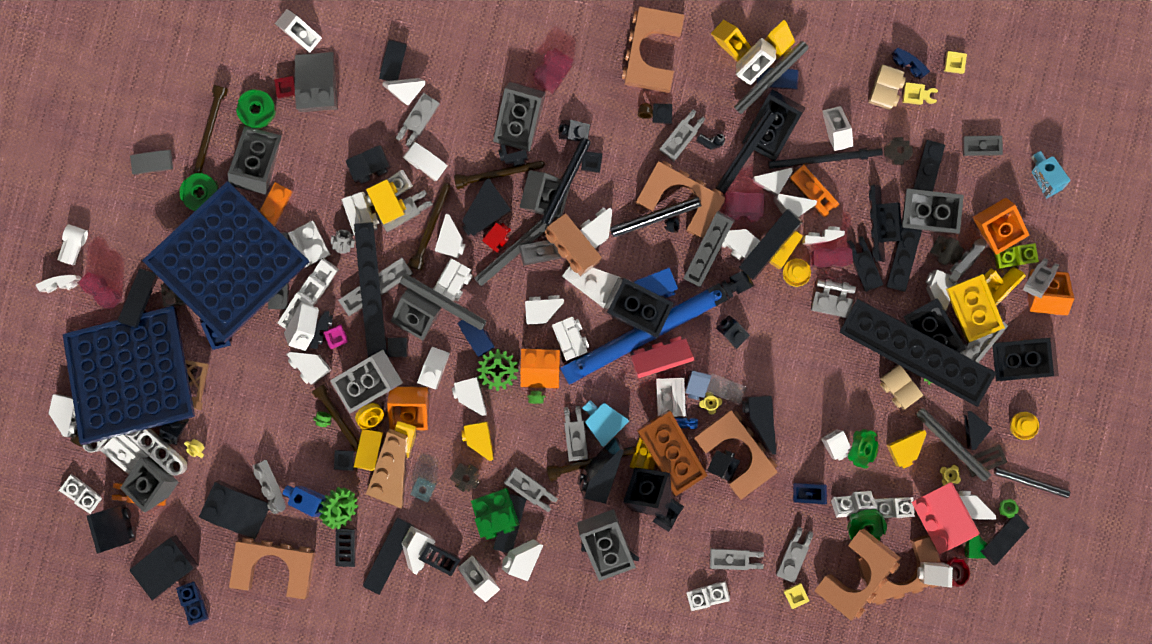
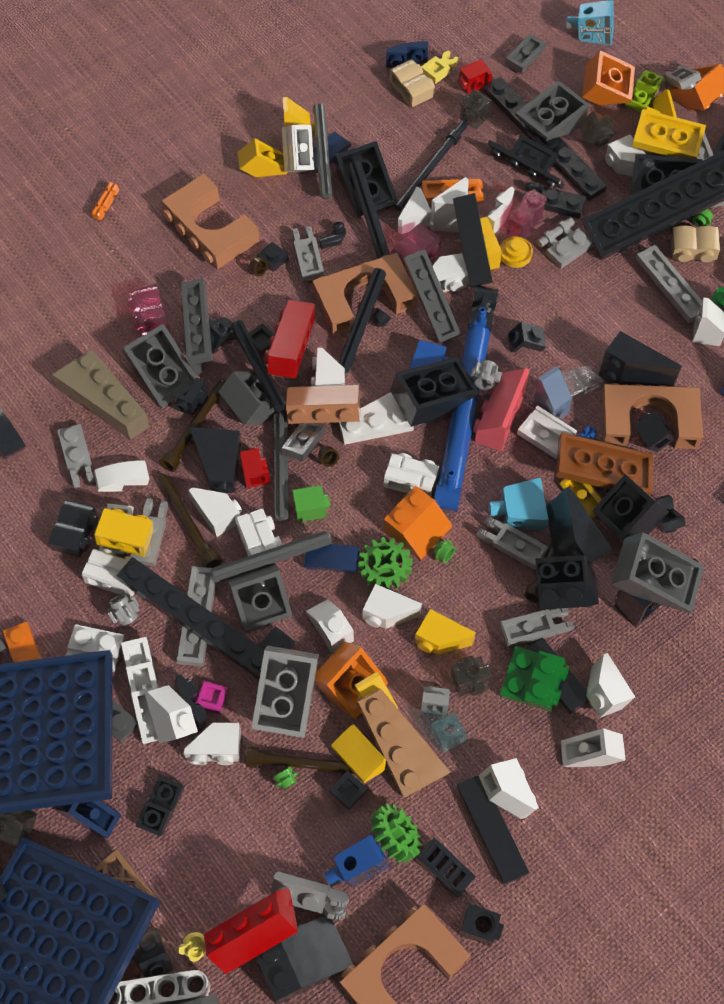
camera: 50 degrees left, 25 degrees down
(222, 475) = (251, 931): none -> red slope
(252, 363) = (160, 806): none -> black slope
(330, 582) = (470, 931): none -> black brick
(369, 416) = (323, 723): yellow plate -> none
(405, 89) = (37, 442): white slope -> none
(436, 467) = (435, 700): none -> light grey bracket
(452, 564) = (555, 765): black slope -> none
(469, 94) = (99, 390): none -> dark tan wedge
(501, 292) = (310, 503): none -> bright green brick
(541, 311) = (360, 482): white slope -> none
(542, 275) = (328, 456): none -> dark brown hinge
(563, 492) = (566, 582): none -> black slope
(565, 114) = (196, 324): none -> dark grey fence
(601, 186) = (290, 339): none -> red brick
(673, 332) = (486, 375): none -> light grey gear
(715, 403) = (581, 398): light yellow plate -> none
(838, 128) = (415, 137): white slope -> none
(854, 394) = (670, 282): none -> light grey plate
(928, 127) = (474, 76): none -> red brick
(955, 62) = (436, 27): light yellow plate -> none
(967, 260) = (619, 118): dark grey hinge -> none

